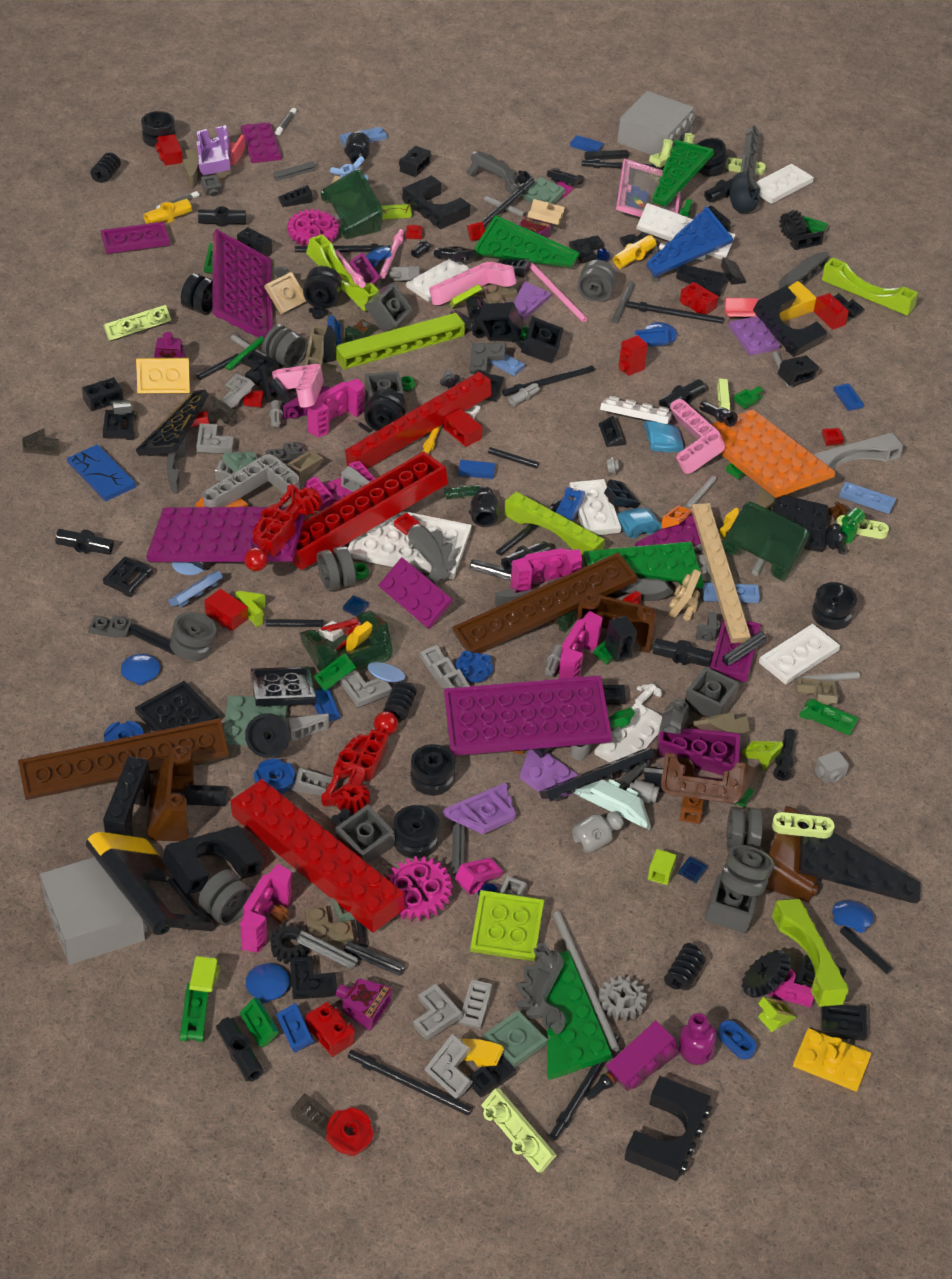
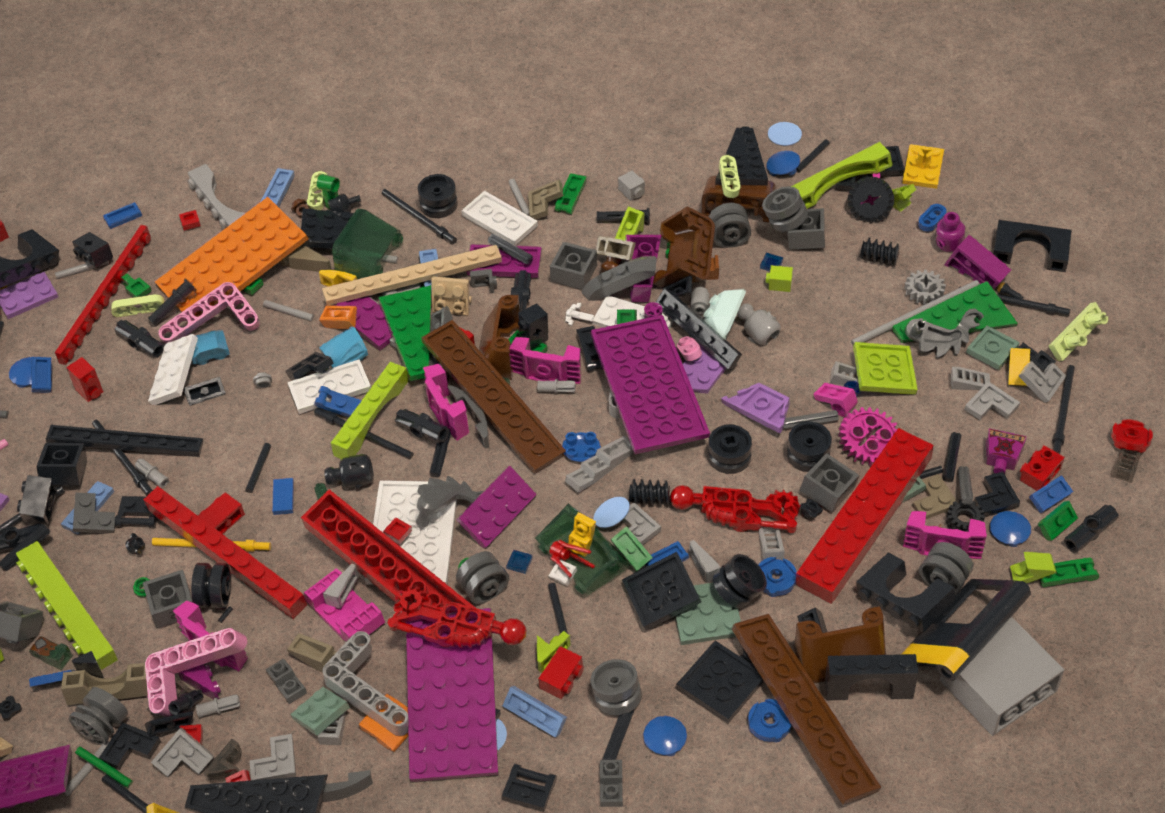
camera: 95 degrees left, 5 degrees up
(562, 380) = (126, 440): none -> black tile
(572, 765) = (689, 348): none -> bright pink plate
(625, 741) = (652, 309): none -> magenta wheel
(744, 377) = (102, 295): none -> red plate
(788, 608) = (440, 230): none -> black bar
(910, 933) = (784, 133): none -> light blue piece

